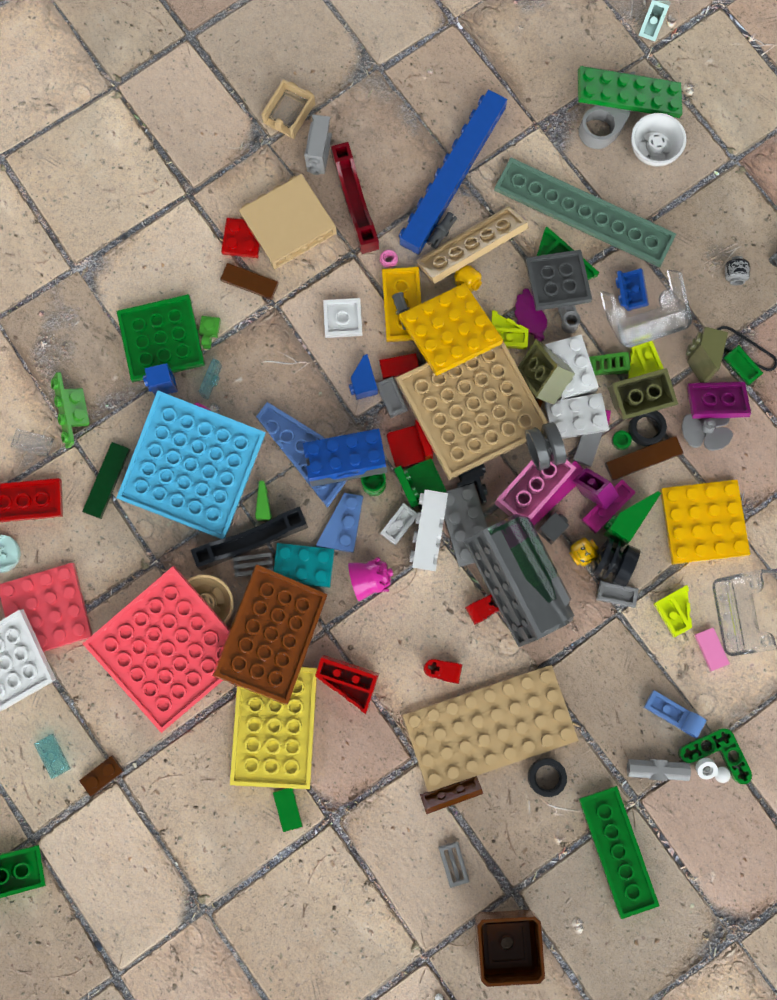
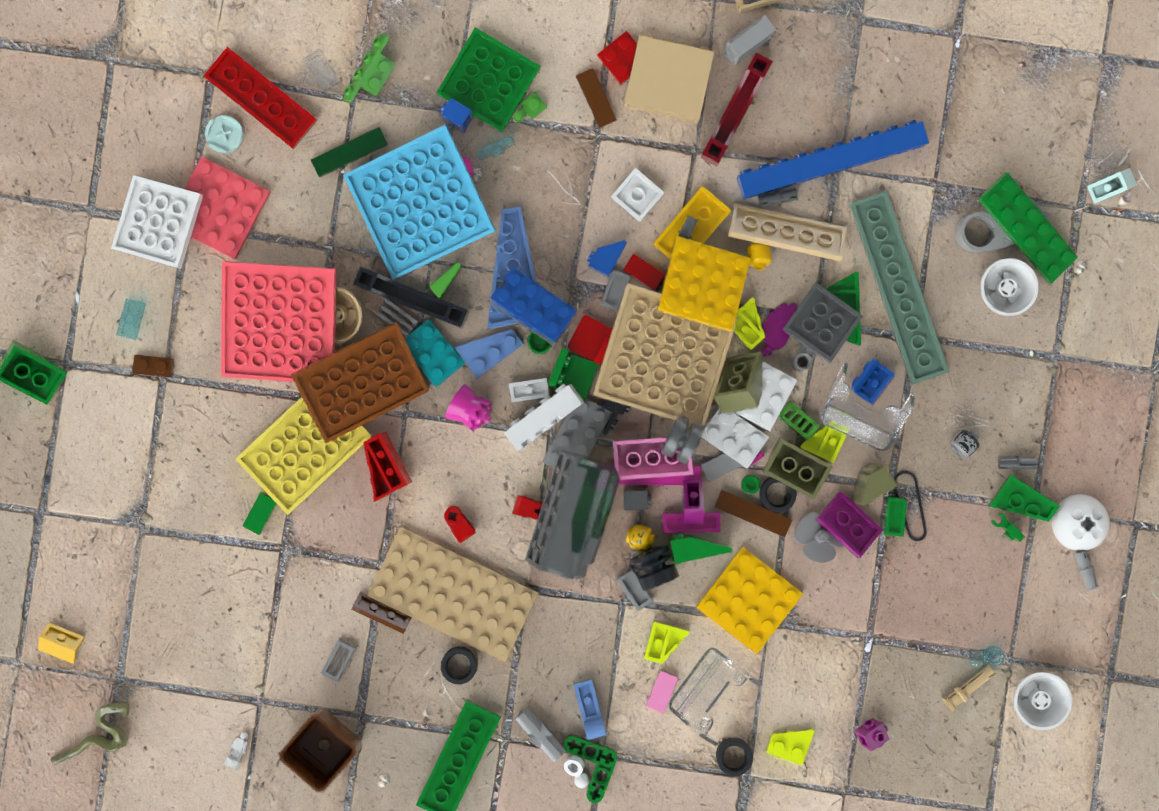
camera: 40 degrees right, 10 degrees up
(388, 254) = (716, 175): bright pink plate -> none

